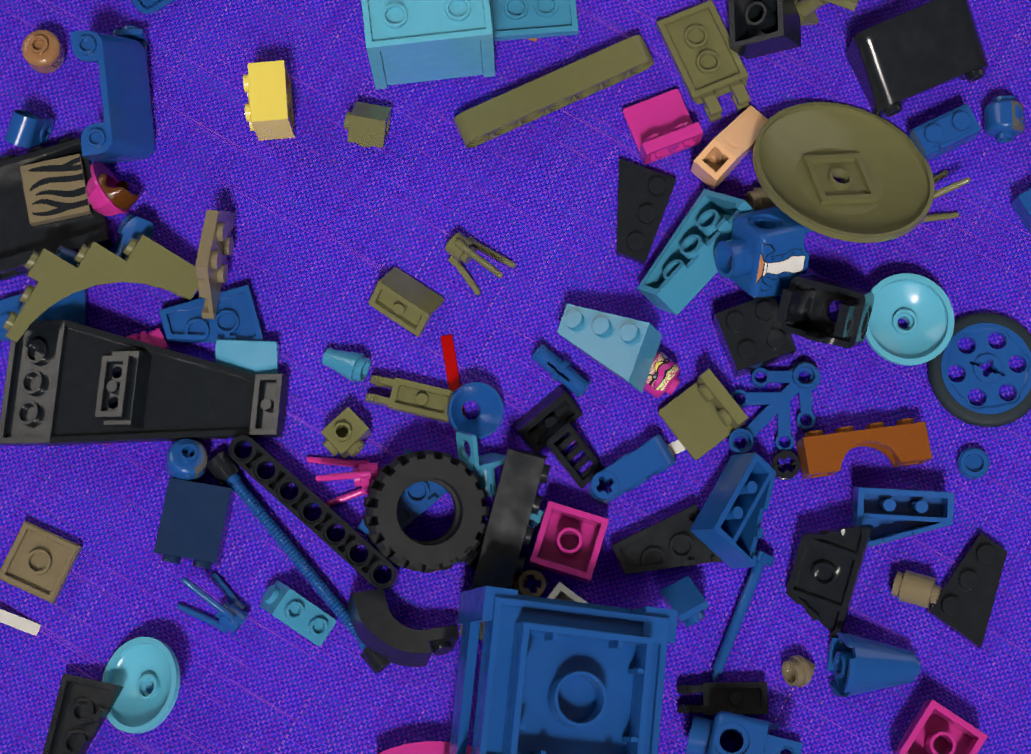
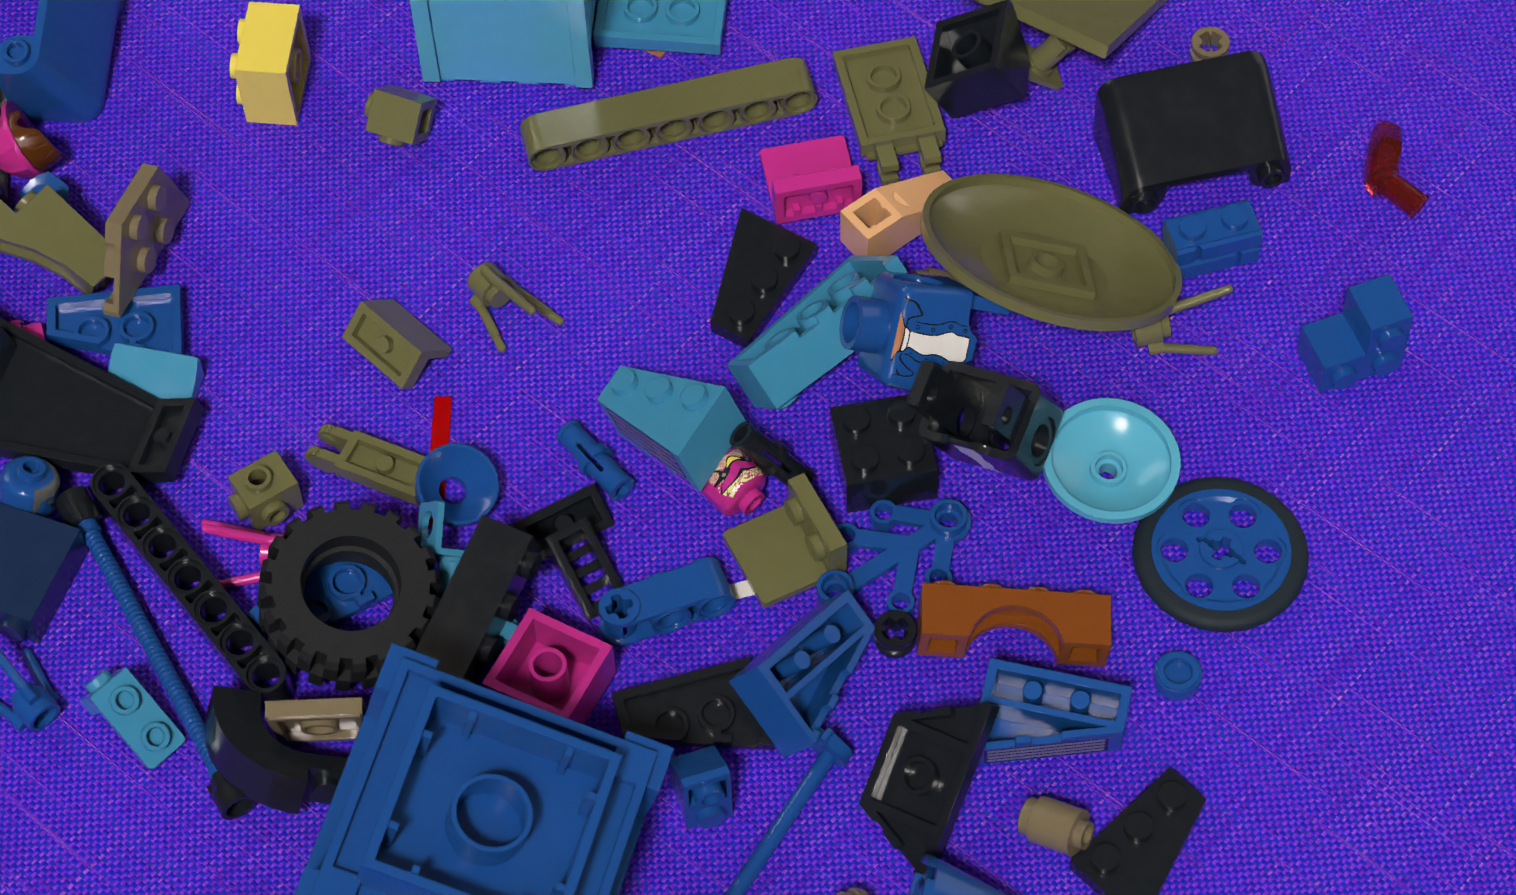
camera: 10 degrees right, 20 degrees down
(348, 364) = (295, 407): dark azure cone -> none
(426, 602) = (315, 719): none -> dark tan tile
(682, 355) = (753, 442): none -> black pin
(1004, 118) = (1302, 233): blue head -> none

